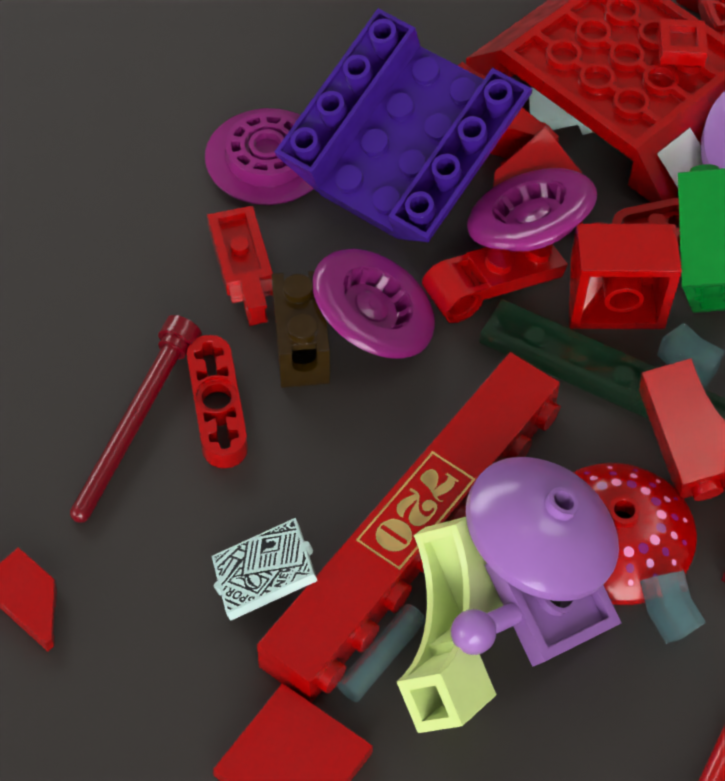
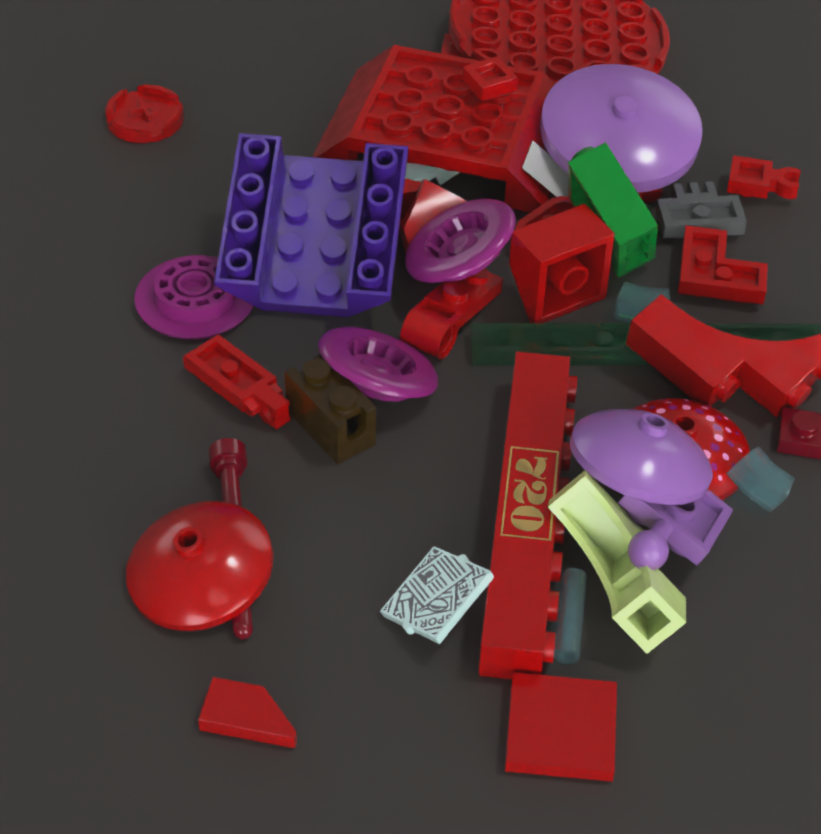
camera: 30 degrees left, 10 degrees down
(82, 432) = (203, 582): none -> red dish
(210, 418) = (298, 512): red beam -> none

